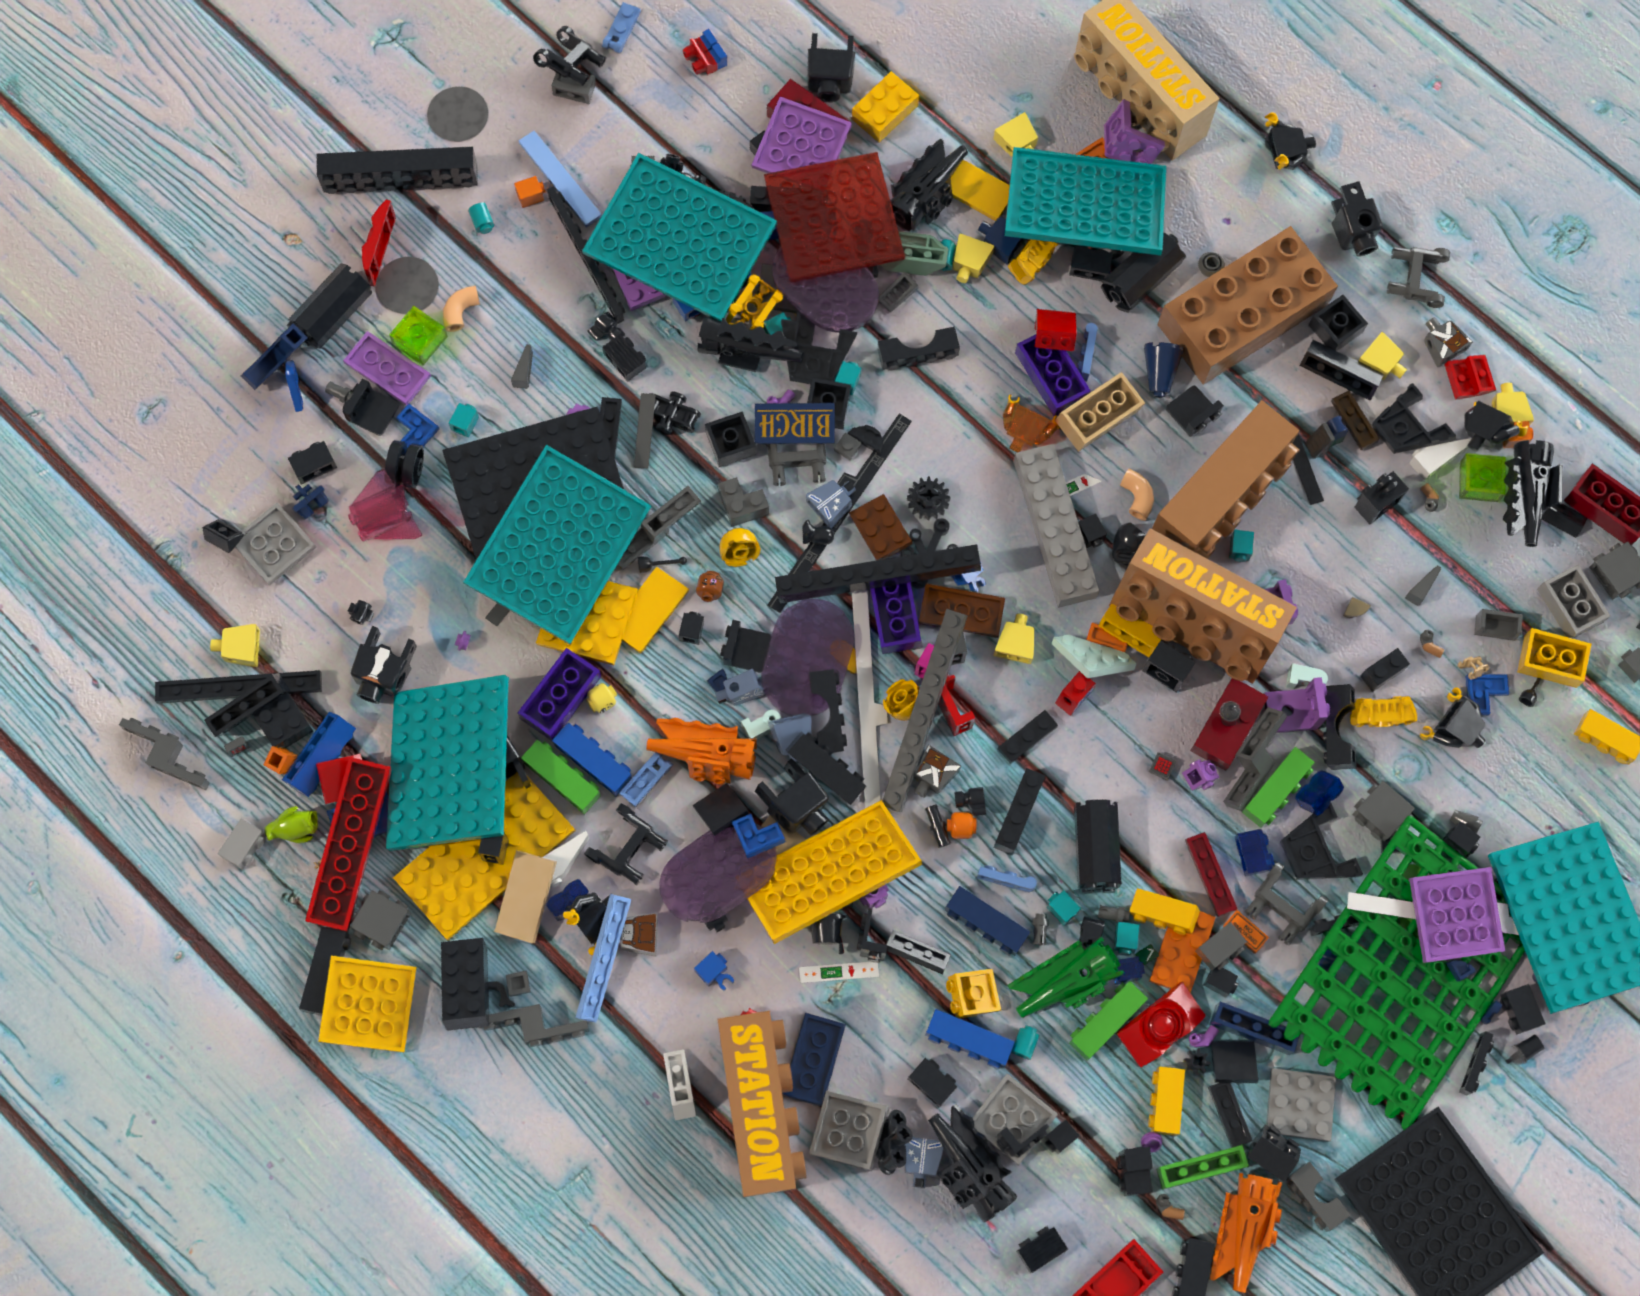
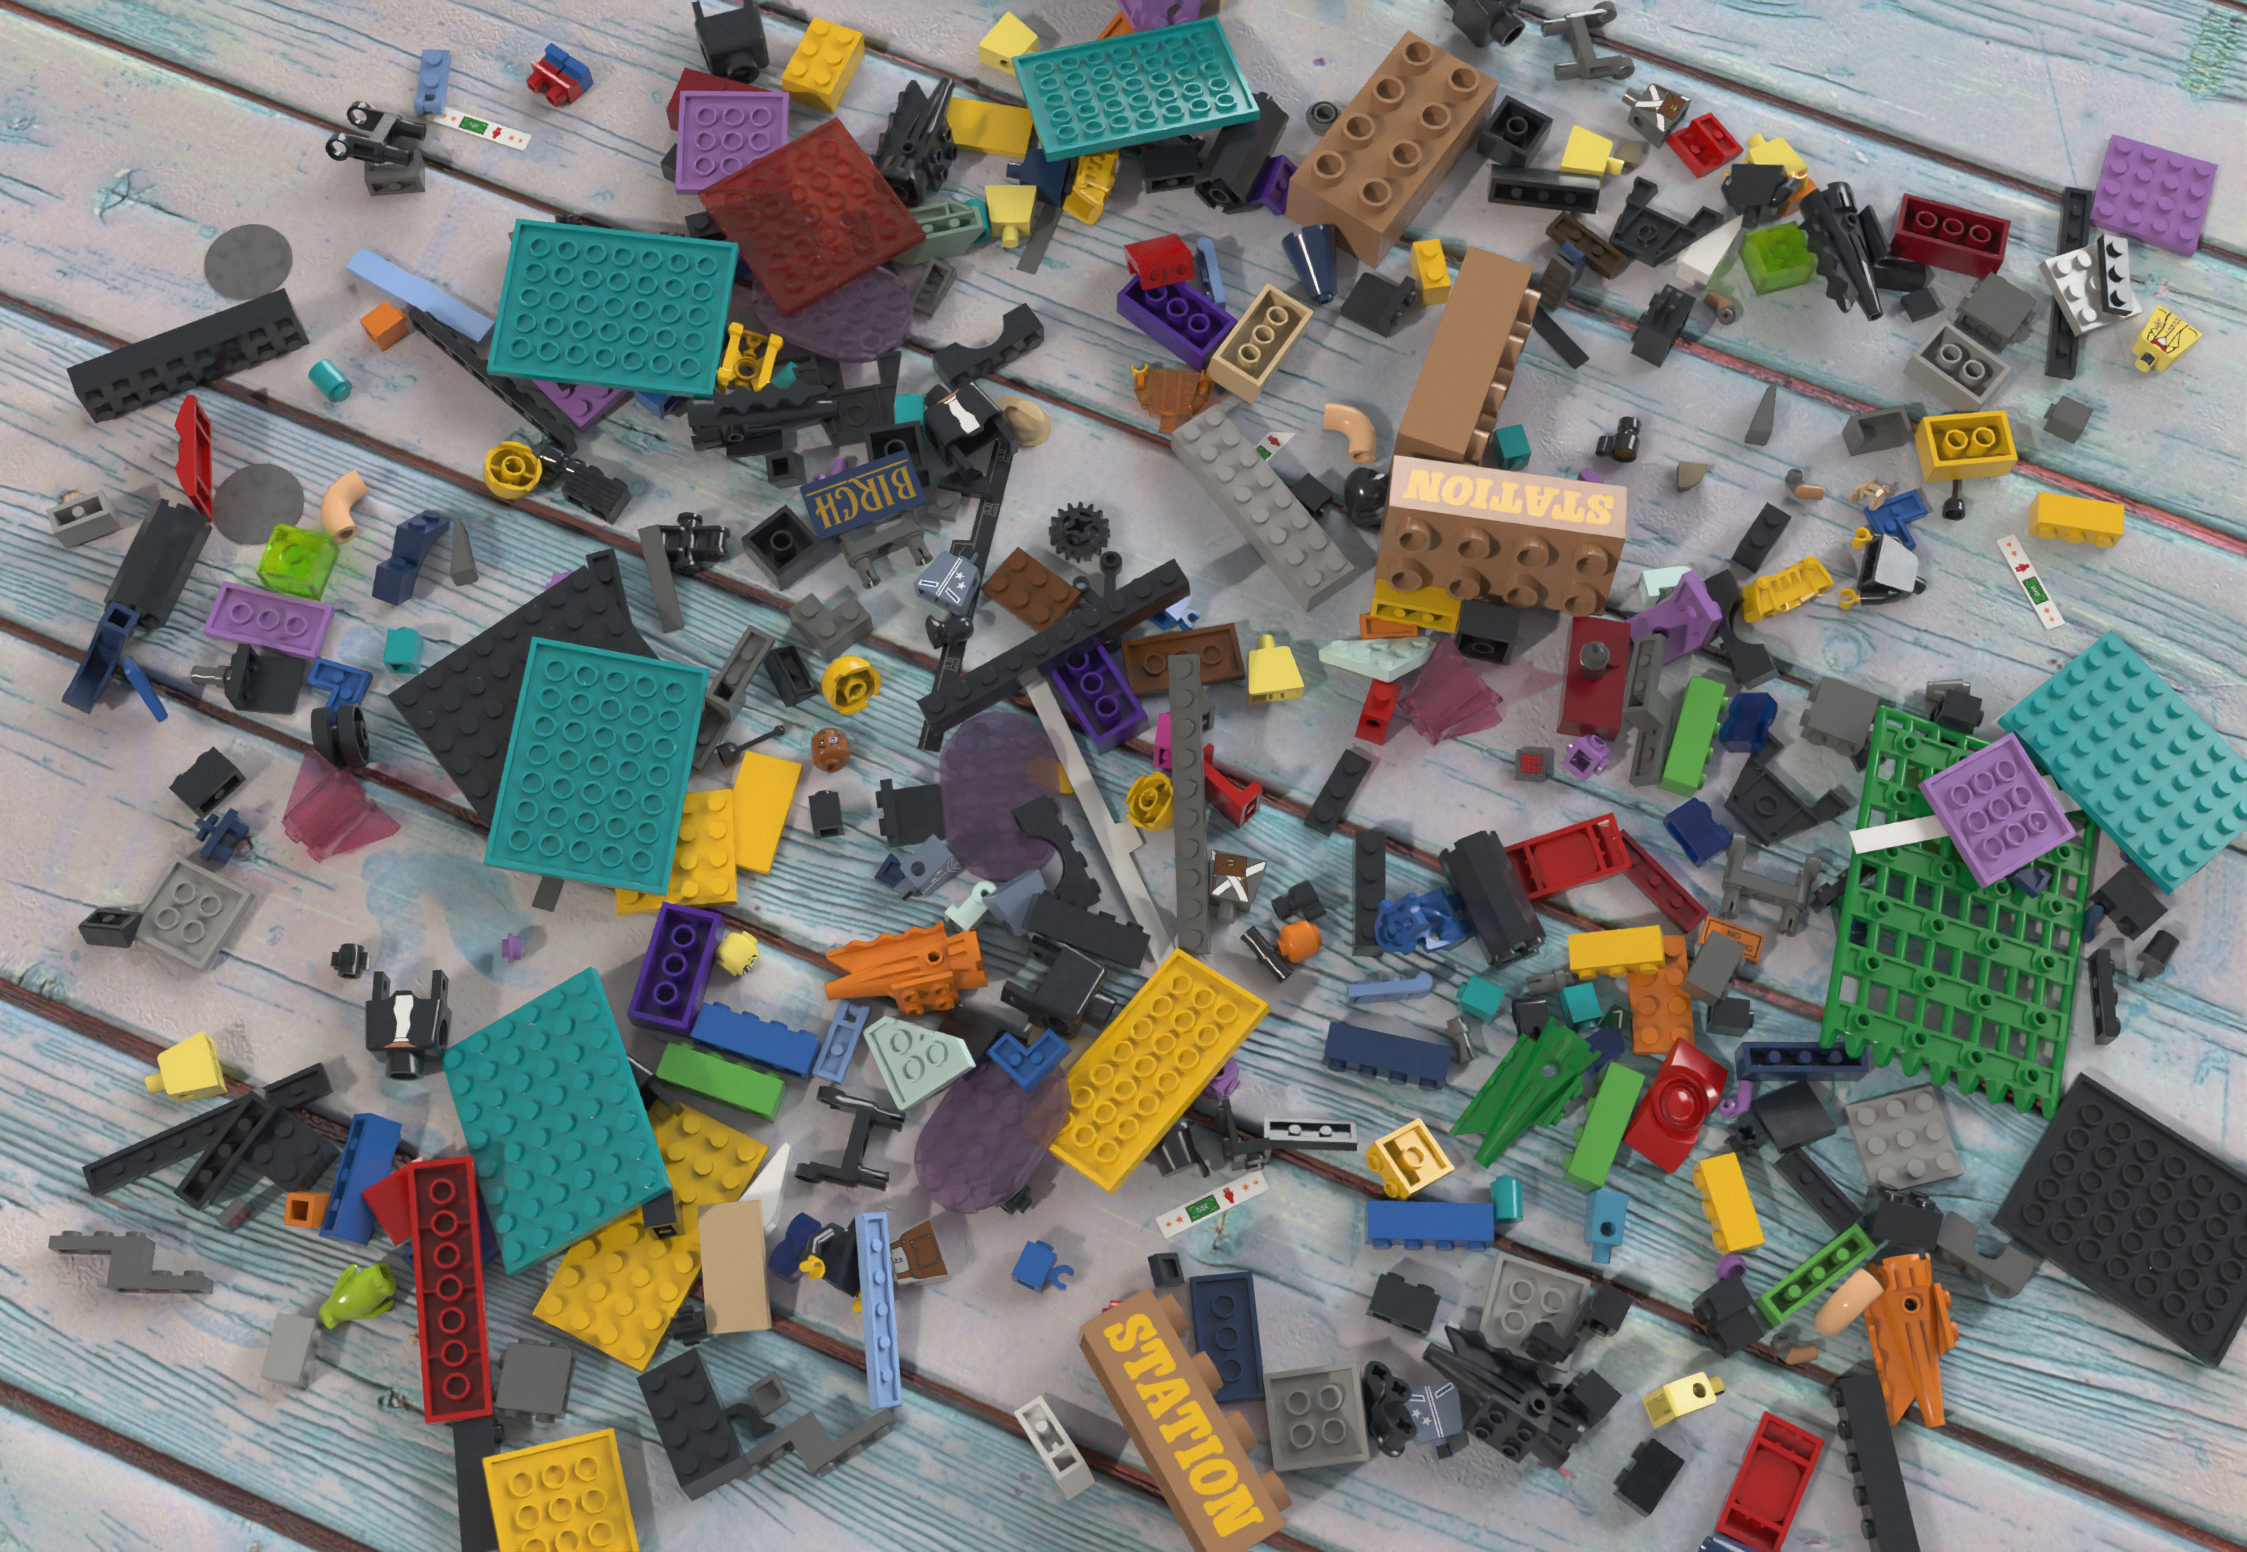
camera: 20 degrees left, 5 degrees down
(294, 257) = (83, 519): none -> light grey brick
(484, 922) = (688, 1325): none -> black gear
(495, 348) = (412, 543): none -> dark blue arch
(575, 323) = (511, 470): none -> yellow cylinder
(643, 72) = (483, 128): none -> white sticker
(687, 809) = (916, 1059): none -> light aqua plate
(703, 526) = (789, 675): none -> black slope
(752, 386) = (785, 469): none -> black brick
(792, 1002) = (1166, 1270): none -> black plate
(879, 396) = (962, 423): none -> black piece
(920, 406) = (1025, 420): none -> tan piece
(985, 281) = (1040, 238): none -> dark grey sticker
(1025, 1185) = (1591, 1396): none -> black brick
(1033, 841) = (1430, 917): none -> blue hips
(1084, 1210) = (1682, 1398): none -> light yellow torso
(1087, 1074) = (1605, 1209): none -> dark azure torso
(1124, 702) = (1450, 697): none -> clear pink brick
(1155, 300) = (1274, 185): none -> dark purple panel
(1159, 837) = (1569, 858): none -> red slope
(1215, 1192) = (1847, 1303): none -> light nougat cylinder
(1238, 401) = (1430, 272): none -> yellow brick
(1319, 570) = (1623, 445): none -> black piece
(1414, 364) = (1630, 153): none -> dark tan tile
(1559, 767) = (2030, 582): none -> white sticker
(1570, 545) = (1919, 304): none -> black tile

